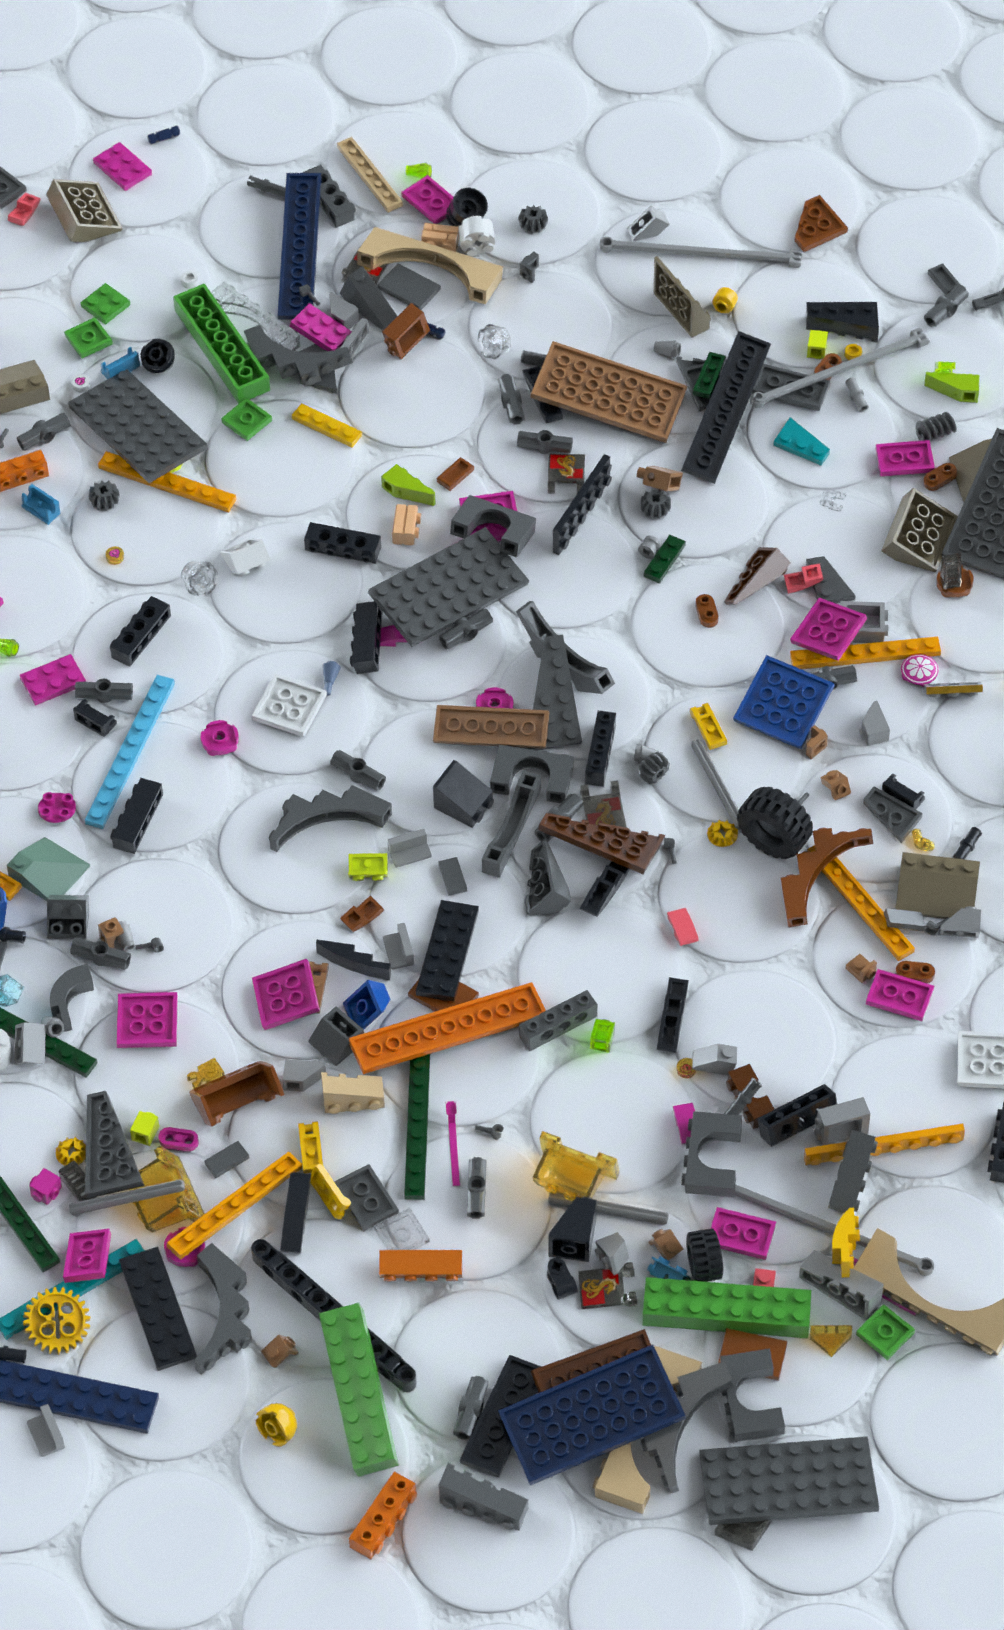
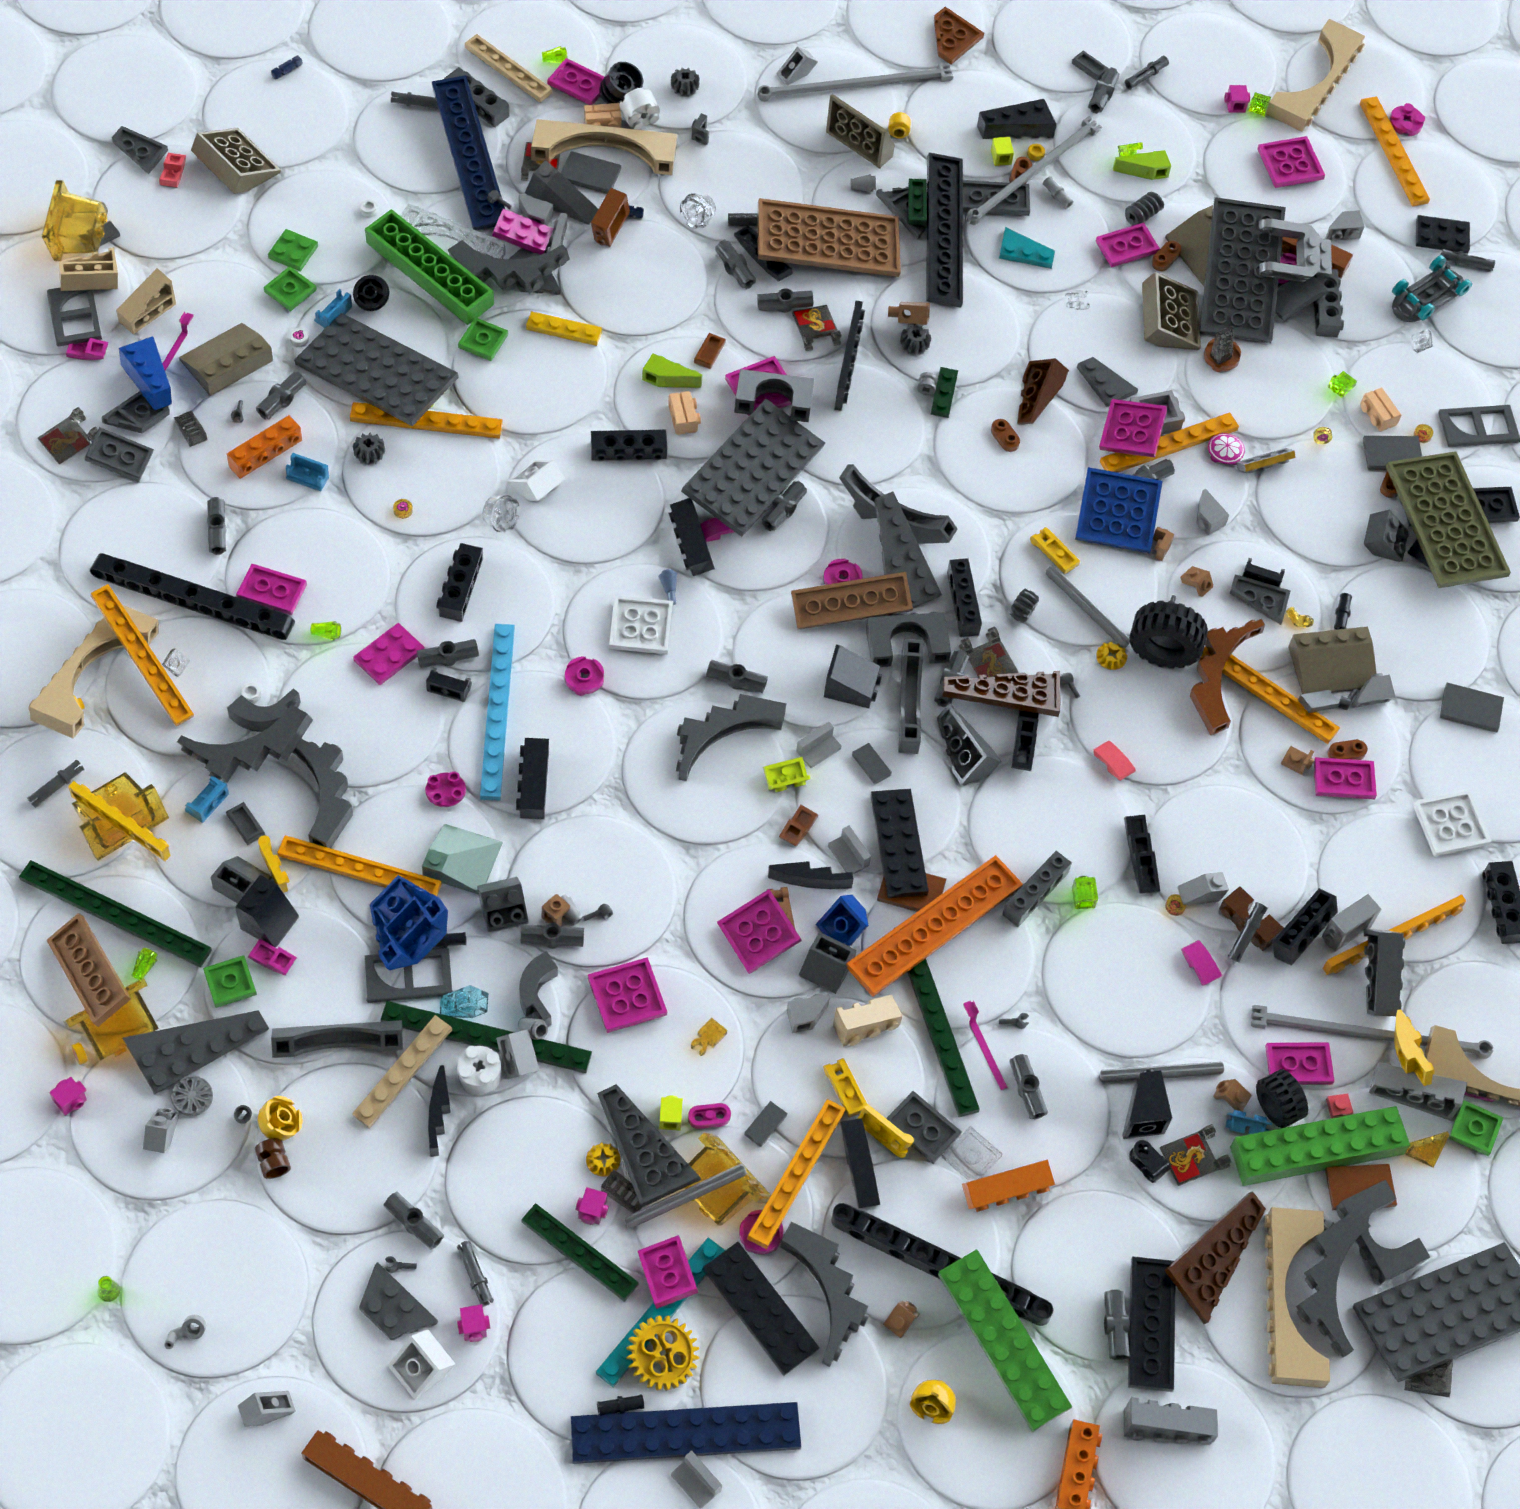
camera: 25 degrees left, 5 degrees up
(122, 166) = (256, 107): dark pink plate -> none
(236, 1090) = (747, 1045): dark orange windscreen -> none
(571, 1171) = (1117, 1044): clear yellow windscreen -> none
(592, 1414) = (1246, 1301): dark blue plate -> none
(612, 1252) = (1189, 1119): light grey slope -> none
(642, 752) = (1007, 593): light grey cone -> none
(704, 1129) = (1238, 1016): dark grey arch -> none
(806, 578) = (1086, 382): coral slope -> none

